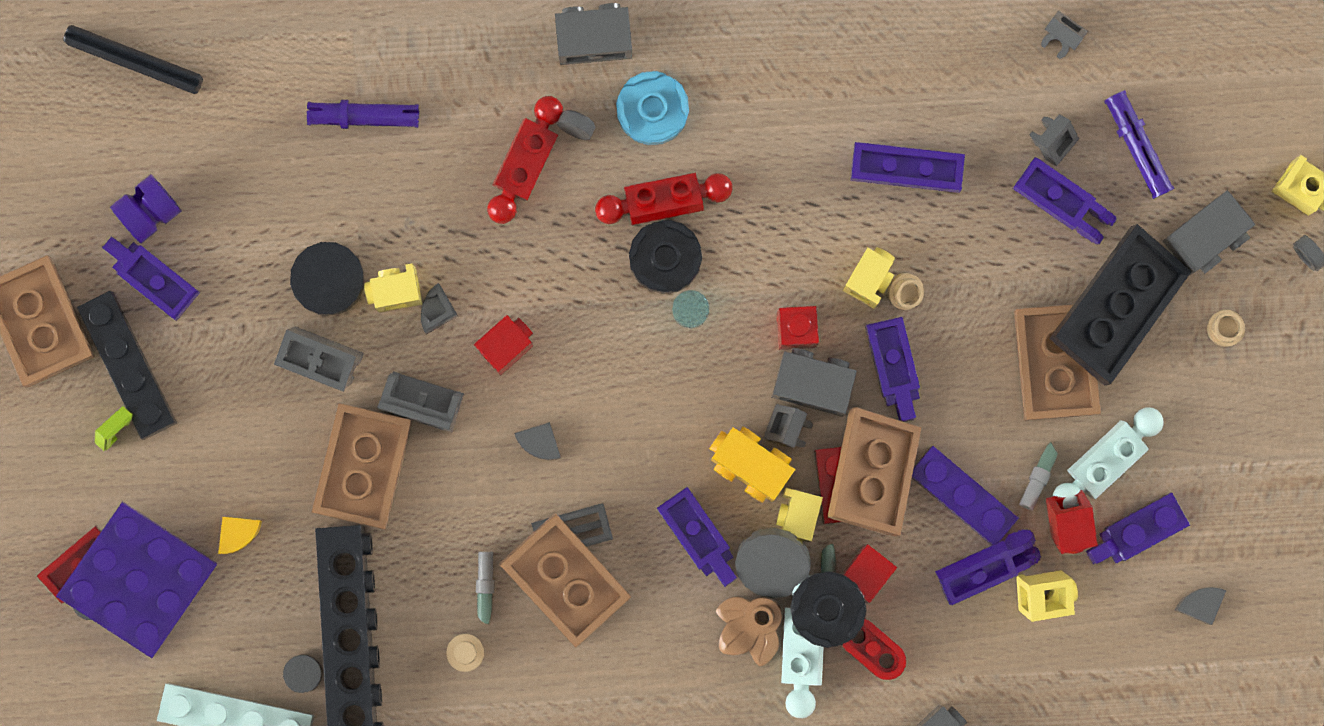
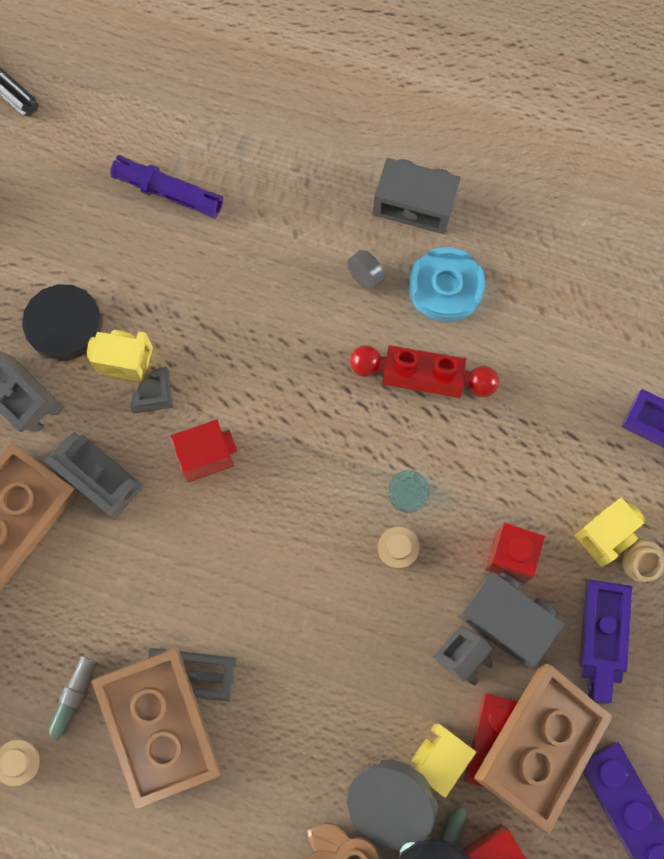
camera: 25 degrees right, 10 degrees down
(525, 160) = (301, 284): red plate -> none
(539, 442) = (196, 565): dark grey tile -> none
(665, 256) = (403, 429): black tile -> none
(698, 535) = (321, 737): dark purple hinge -> none
(700, 360) = (398, 547): none -> tan plate
(742, 457) = (403, 669): yellow brick -> none

